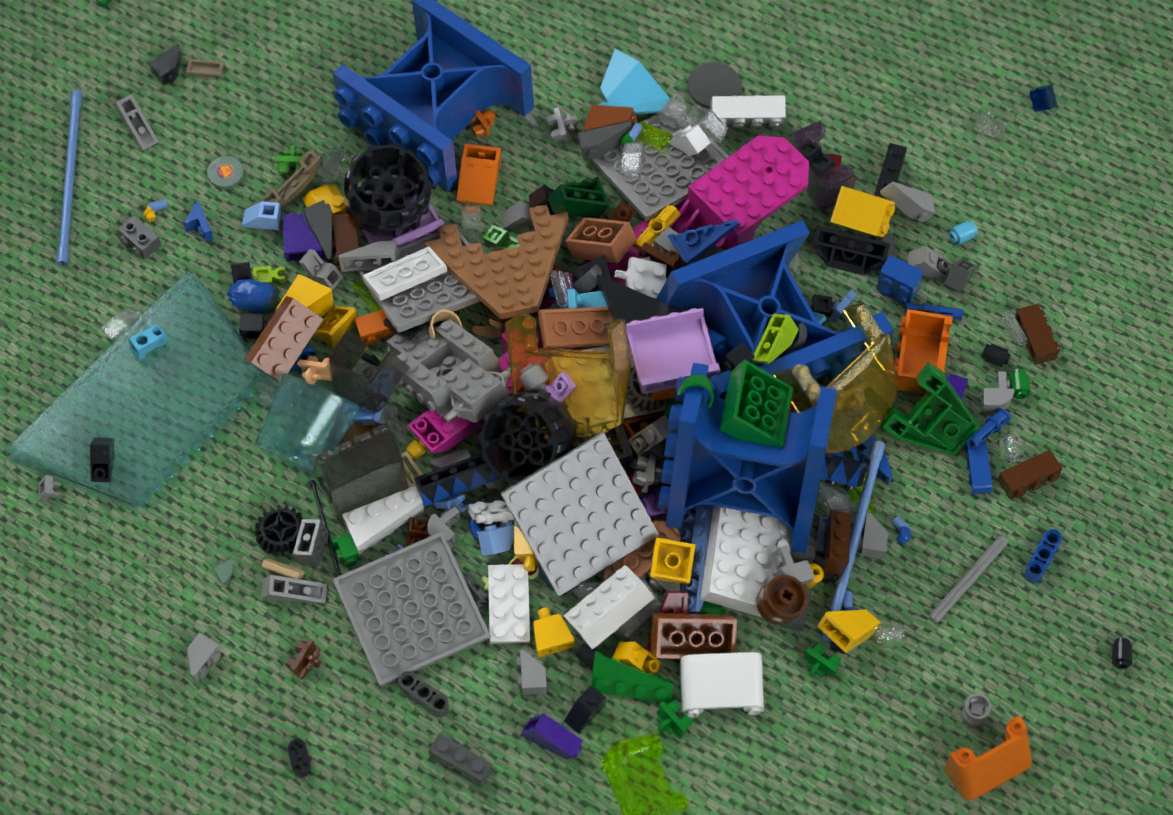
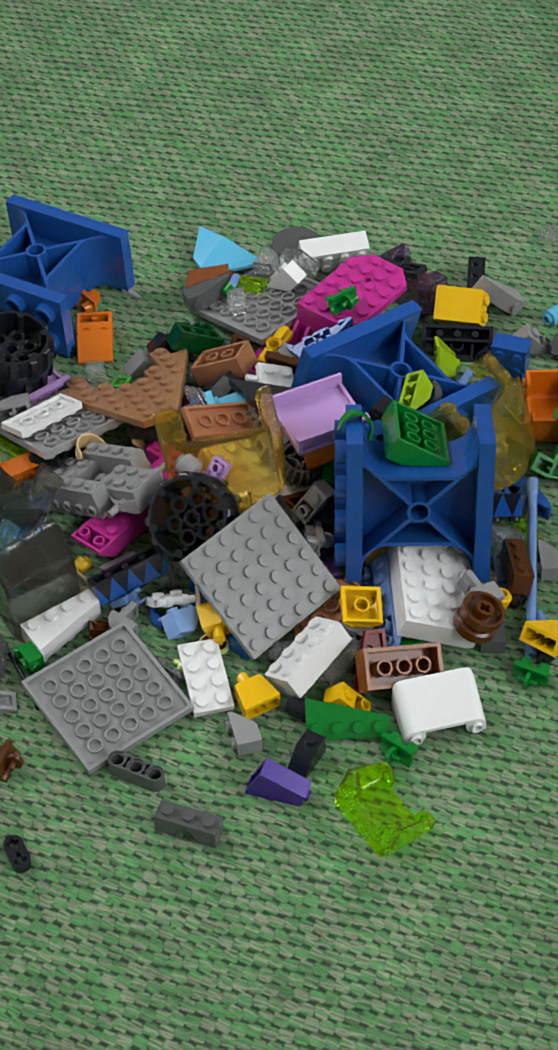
camera: 10 degrees left, 15 degrees down
(558, 119) = (170, 288): light grey hips -> none
(734, 198) = (343, 300): none -> green hips
(830, 275) = (445, 358): none -> lime slope

